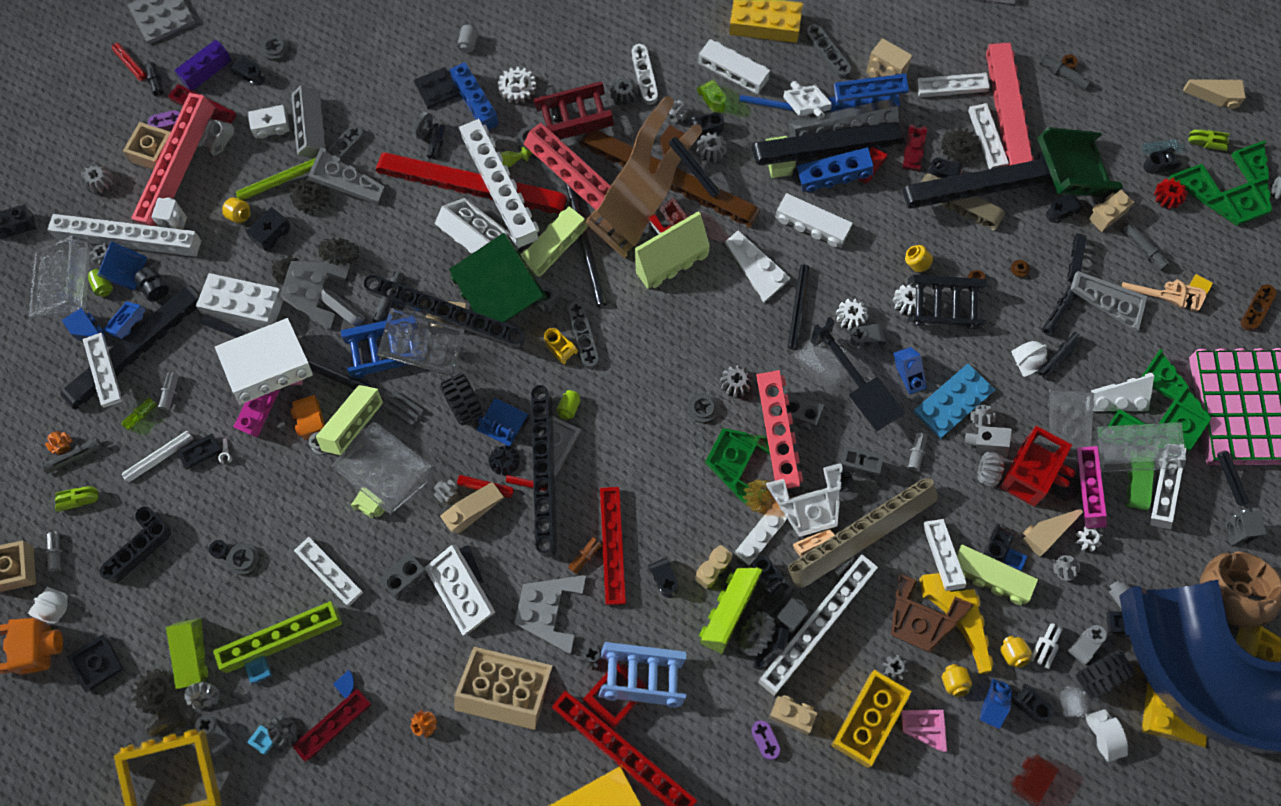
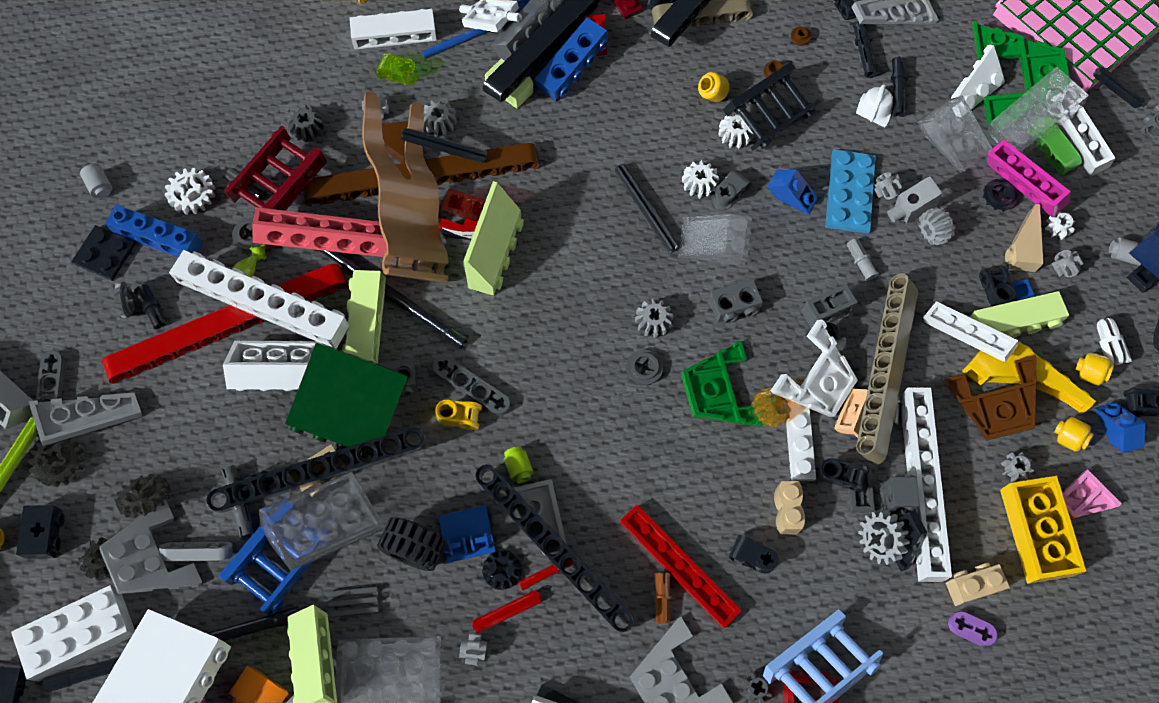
camera: 45 degrees left, 0 degrees up
(471, 508) = (515, 644): tan slope -> none
(644, 74) = (313, 92): white beam -> none
(707, 123) = (413, 95): black piece -> none
(730, 608) = (844, 533): lime slope -> none
(760, 270) = (582, 199): white wing -> none
(765, 382) = (723, 331): coral brick -> none
(813, 221) = (592, 119): white brick -> none
(872, 396) = (790, 238): black piece -> none
(1037, 468) = (975, 199): red piece -> none
(1086, 646) = (1140, 316): light grey piece -> none

